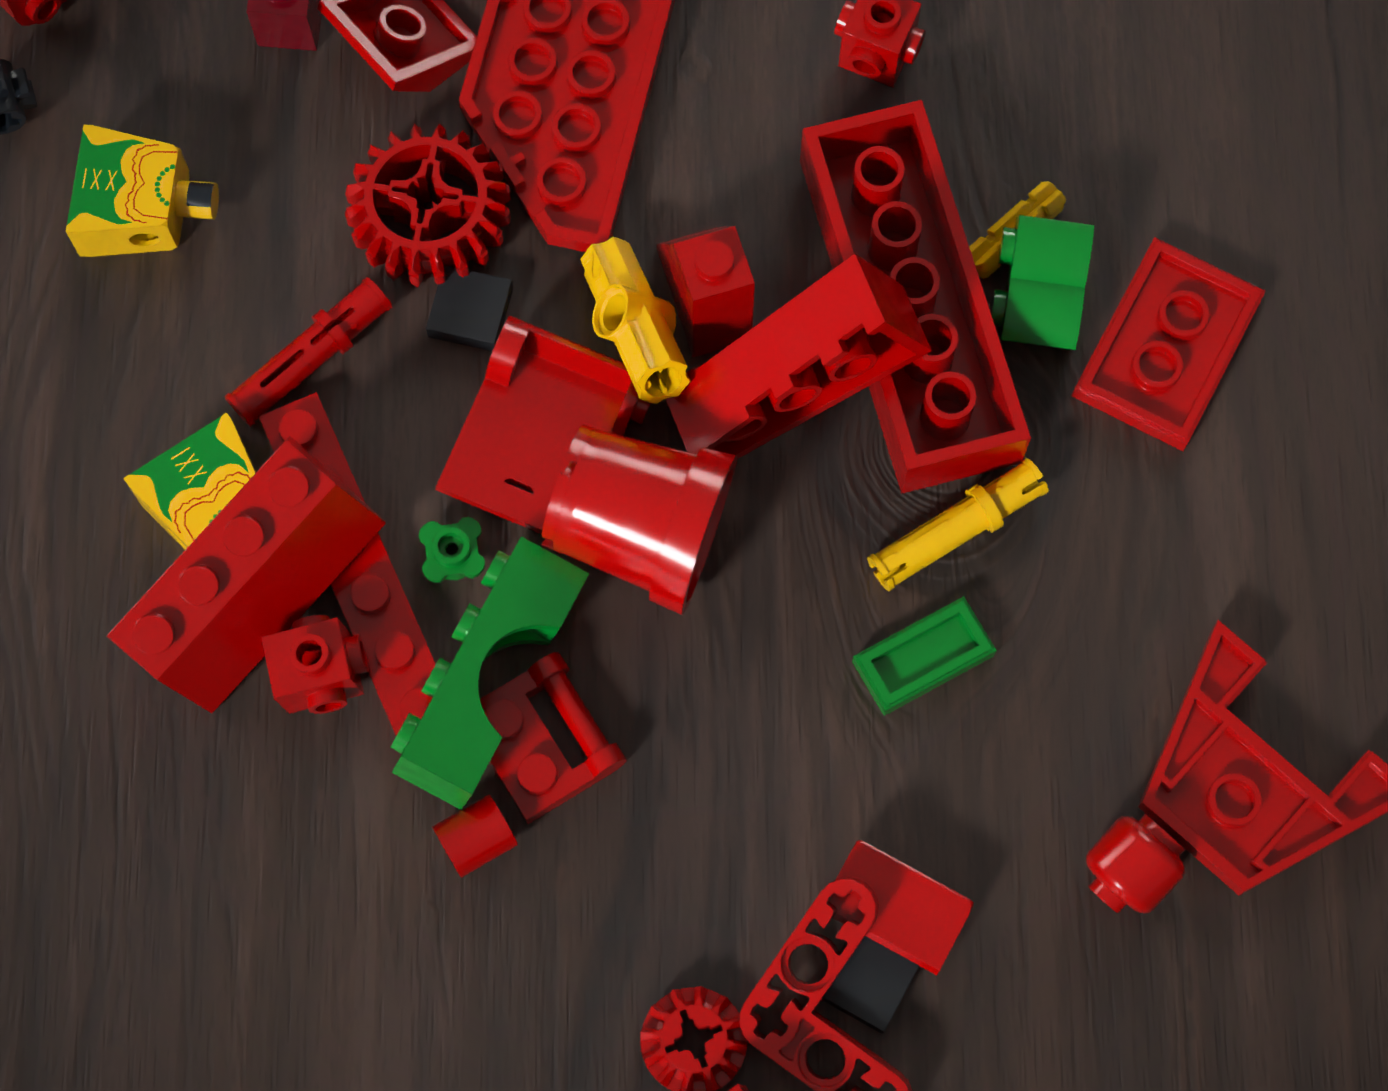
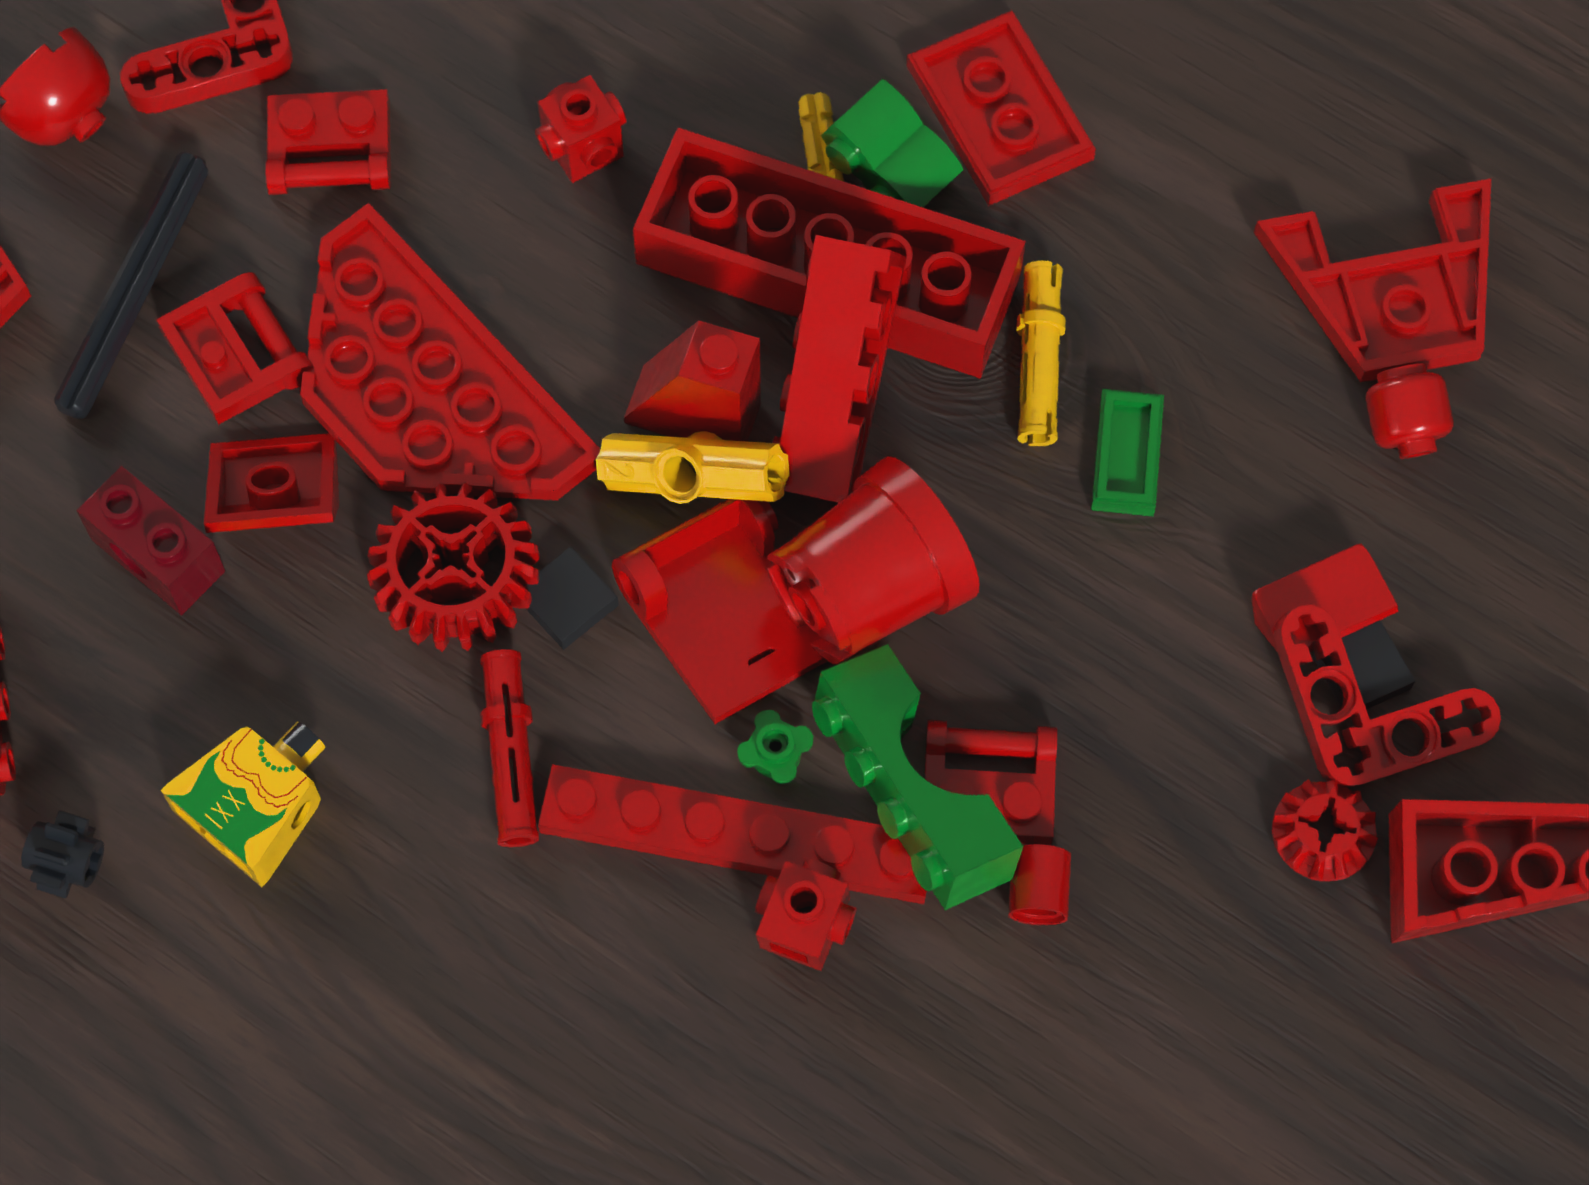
camera: 55 degrees left, 5 degrees down
(193, 479) = (585, 909): torso -> none
(247, 577) = (685, 911): red slope -> none

